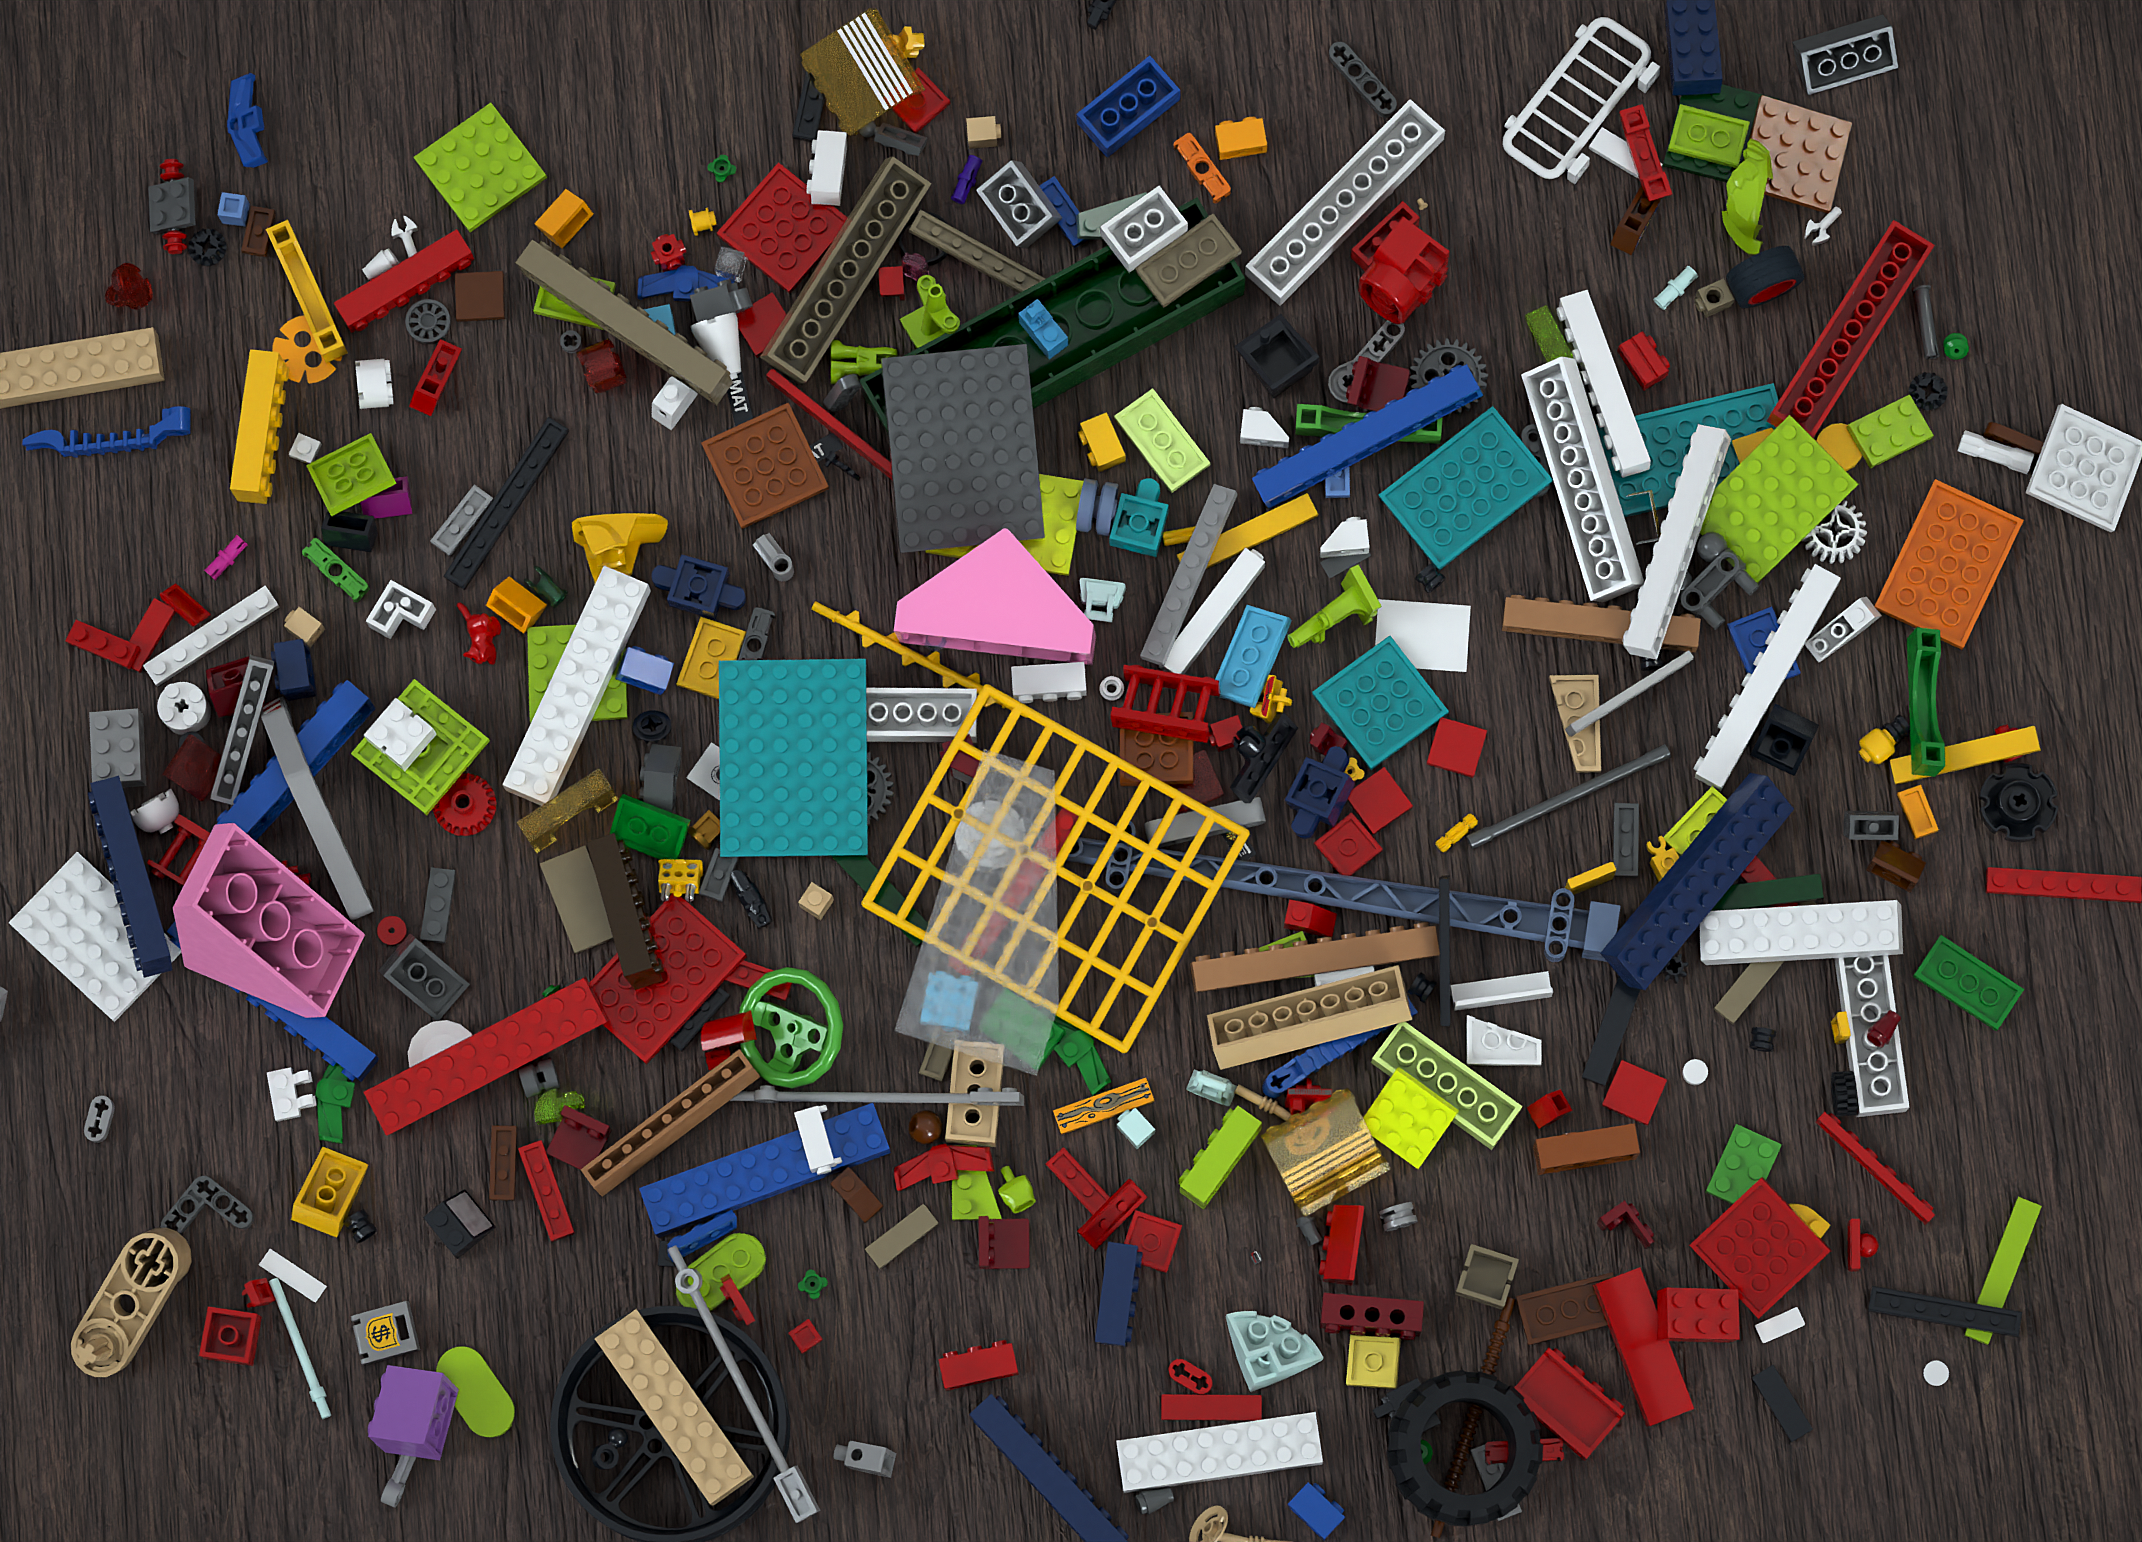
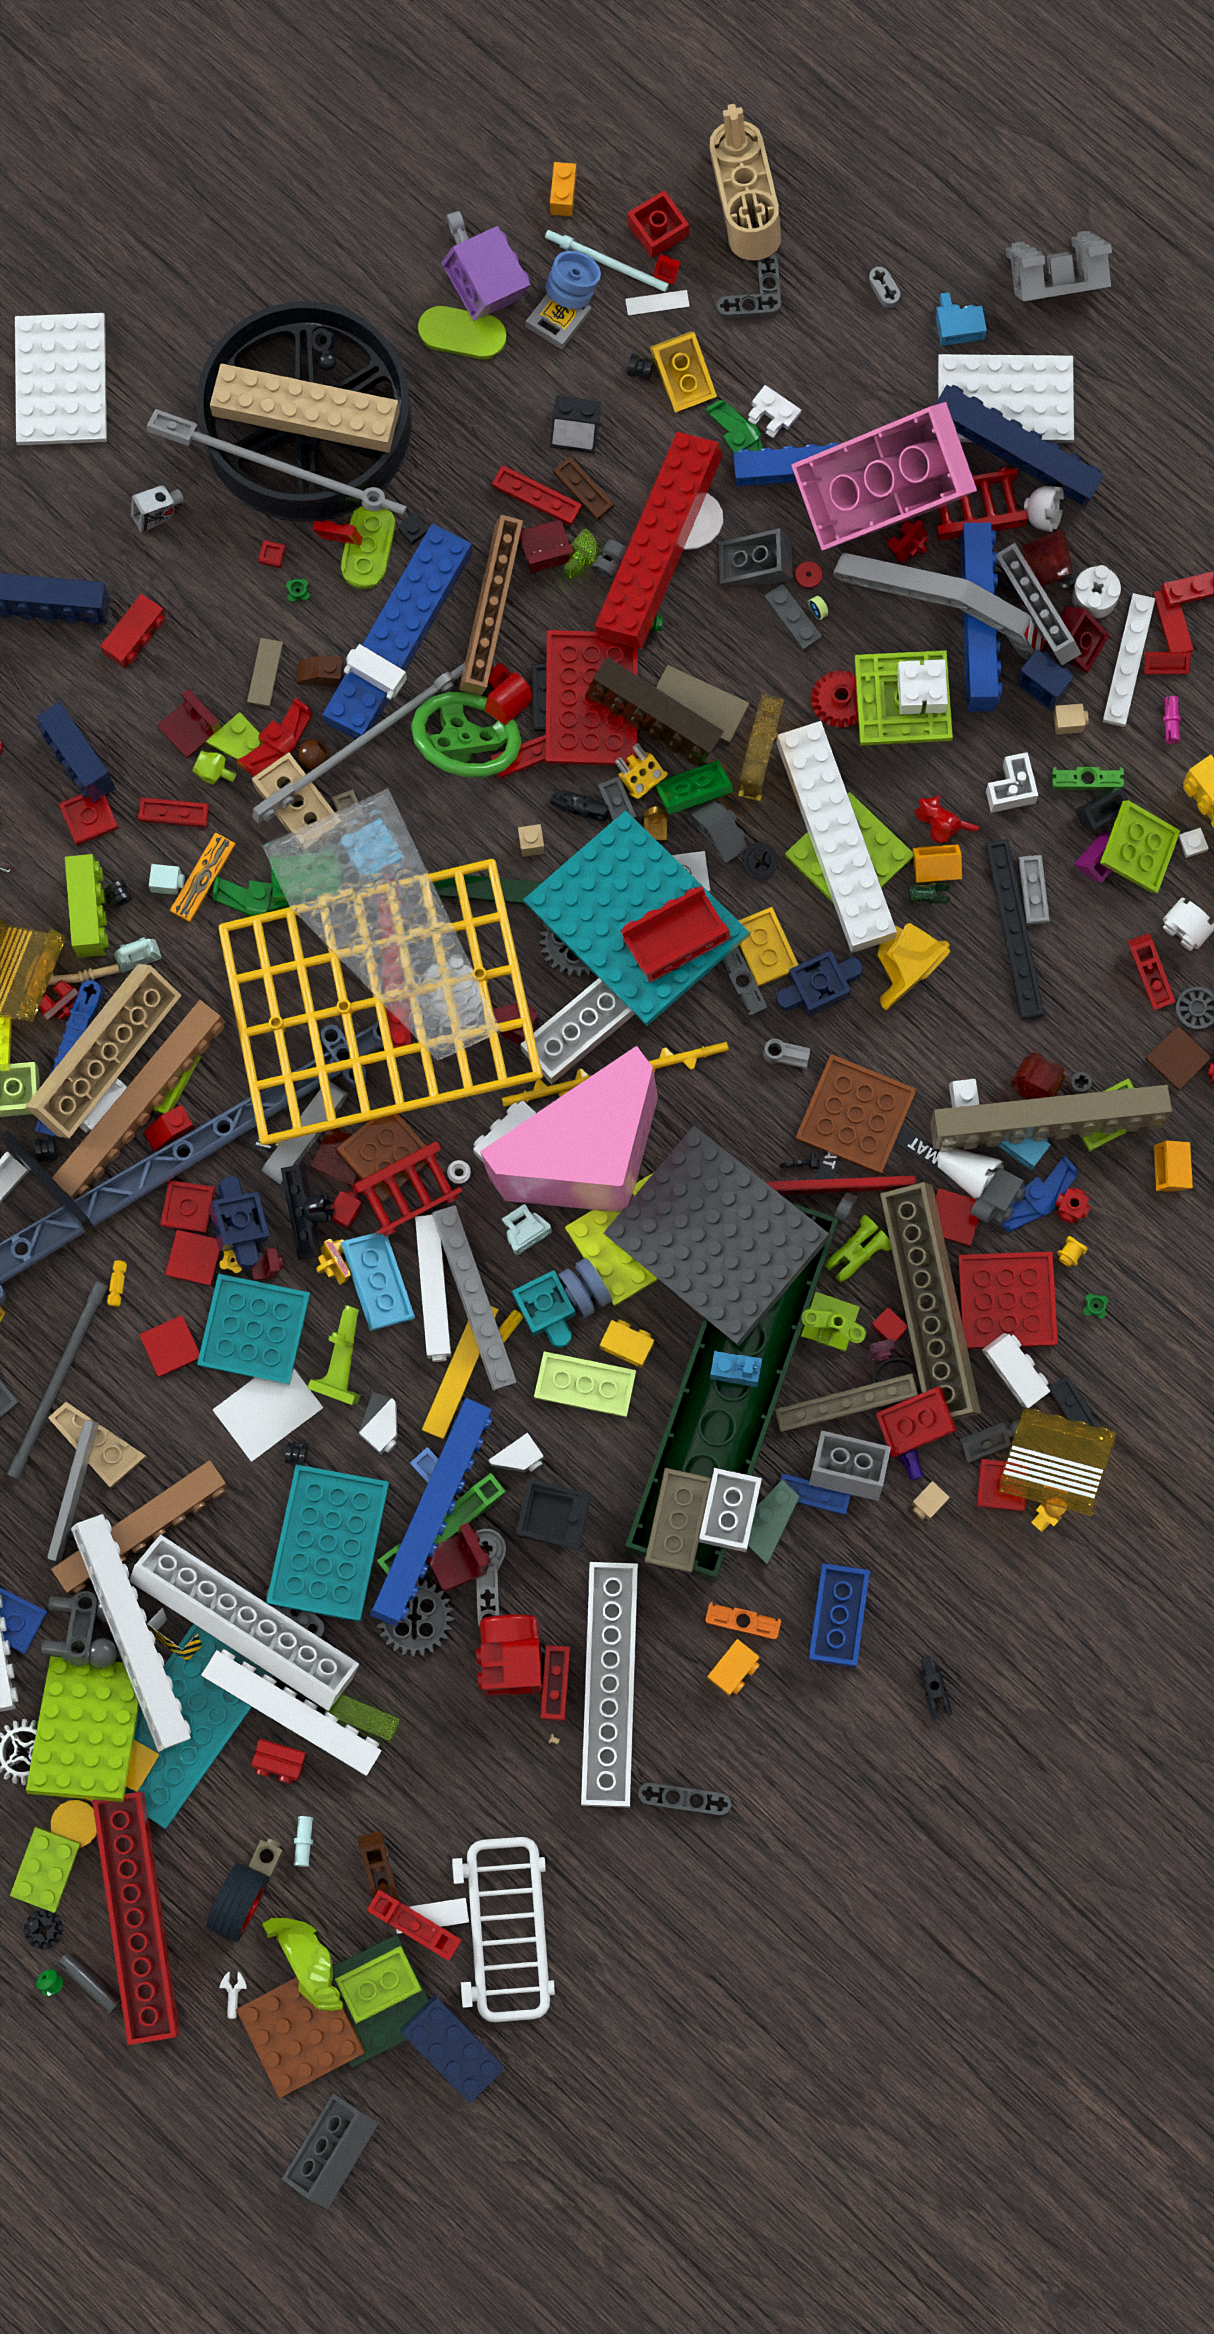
camera: 135 degrees right, 0 degrees up
(74, 1031) = (959, 324): none -> dark azure hinge
(118, 746) = (1114, 527): light grey brick -> none
(277, 1441) = (563, 189): none -> light orange brick
(346, 1346) = (572, 279): none -> medium blue wheel
(411, 892) = (818, 607): none -> yellowish green tile
(644, 670) = (801, 892): brick -> none
(704, 1233) = (401, 552): blue plate -> none
(730, 264) = (1019, 1236): clear brick -> none
(778, 706) = (675, 934): none -> red panel
(939, 191) = (916, 1422): none -> red tile
(1112, 1214) = (130, 809): red tile -> none
(1184, 1149) = (118, 894): none -> black wheel

